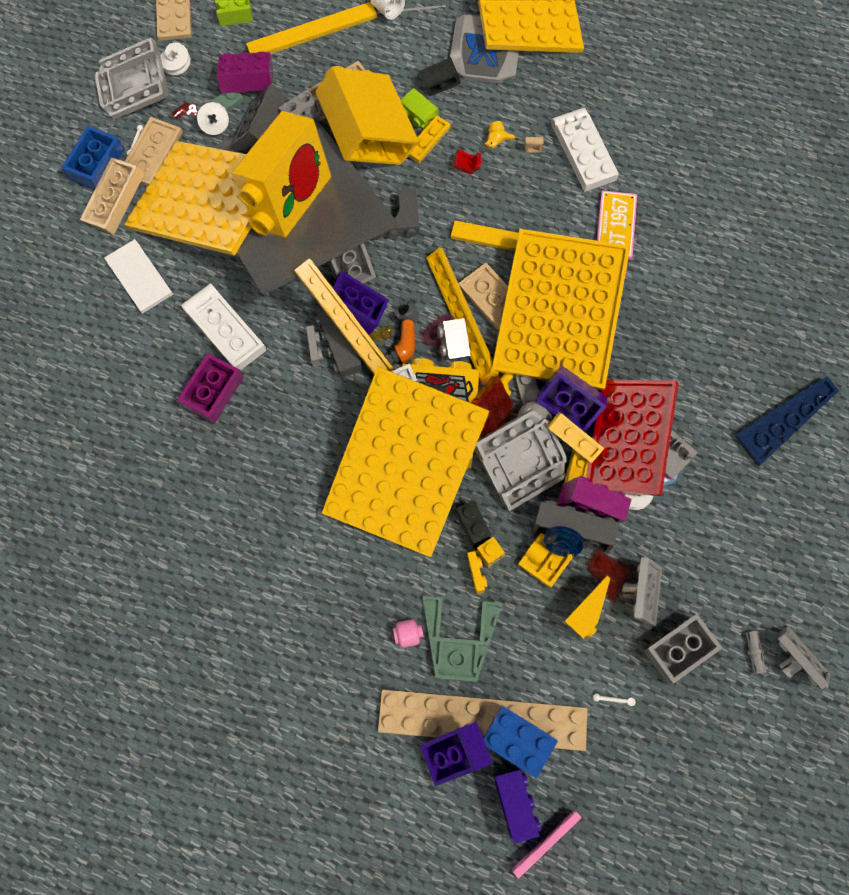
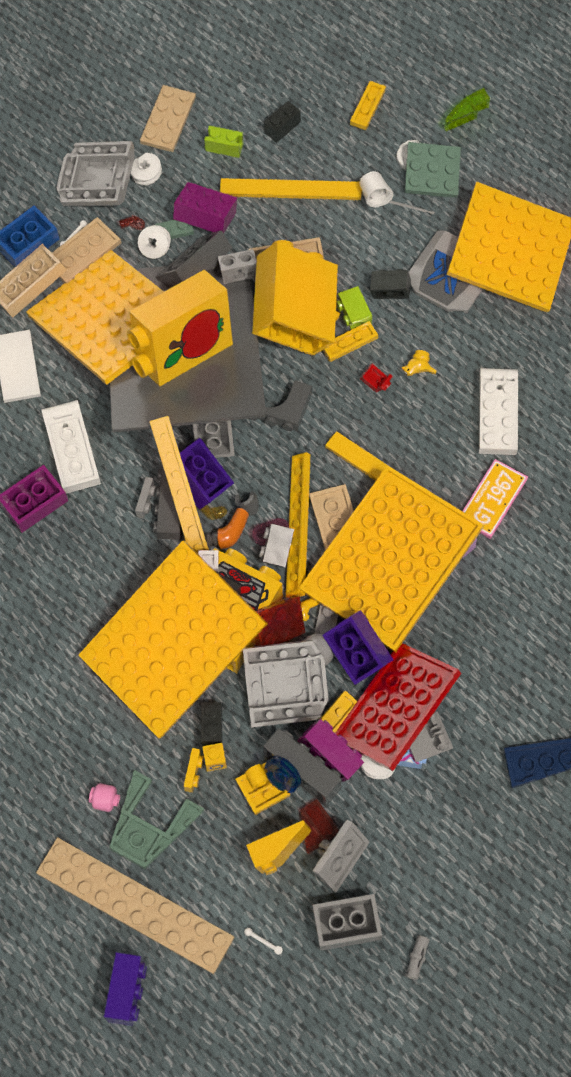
camera: 25 degrees right, 5 degrees down
(456, 754) = (92, 918): dark purple brick -> none
(519, 741) = (154, 934): blue brick -> none
(533, 144) = (449, 387): tan tile -> none
(544, 845) = (136, 1037): bright pink tile -> none
(575, 437) = (342, 684): yellow plate -> none
(802, 659) = (455, 980): light grey plate -> none

